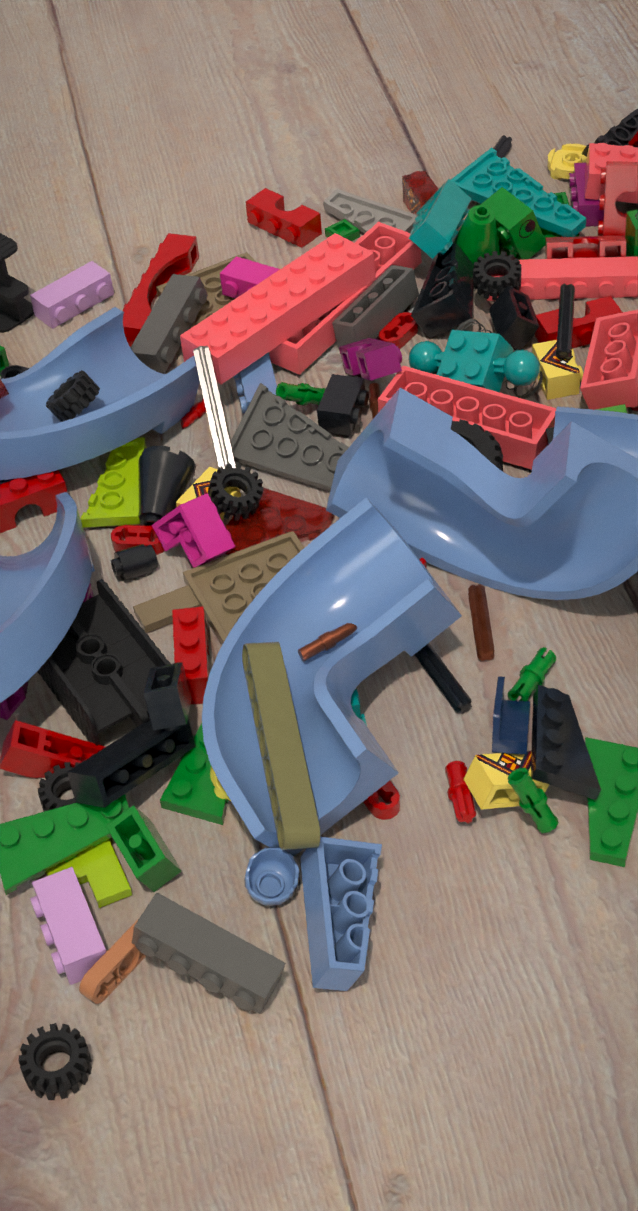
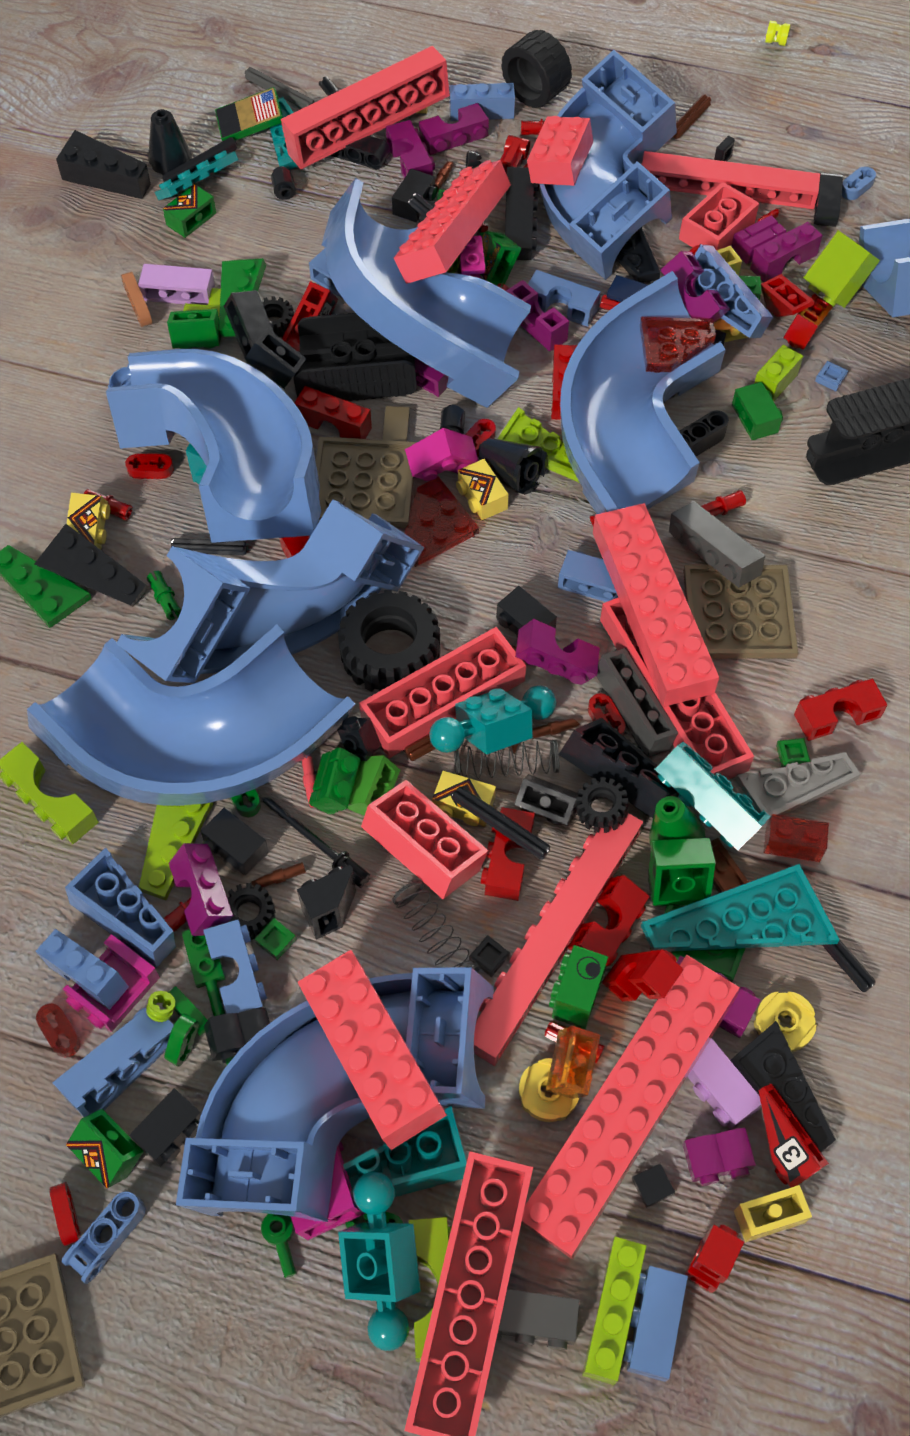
camera: 115 degrees right, 15 degrees up
(47, 1044) = (98, 242): black tyre -> none
(72, 294) = (817, 506): lavender brick -> none
(72, 396) = (609, 404): black tyre -> none
(174, 256) = (825, 596): red arch -> none
(207, 953) = (96, 325): dark grey brick -> none
(213, 406) = (557, 511): axle -> none
(235, 478) = (454, 480): black tyre -> none
(242, 275) = (731, 621): dark pink brick -> none
(280, 747) = (197, 385): olive beam -> none
(285, 442) = (504, 560): dark grey wing -> none
(301, 394) = (556, 593): green pin -> none
(326, 641) = (250, 456): copper piece -> none
(338, 907) = (72, 394): medium blue wedge -> none
(509, 723) = (124, 543): dark blue panel -> none
(533, 800) = (56, 519): green pin -> none

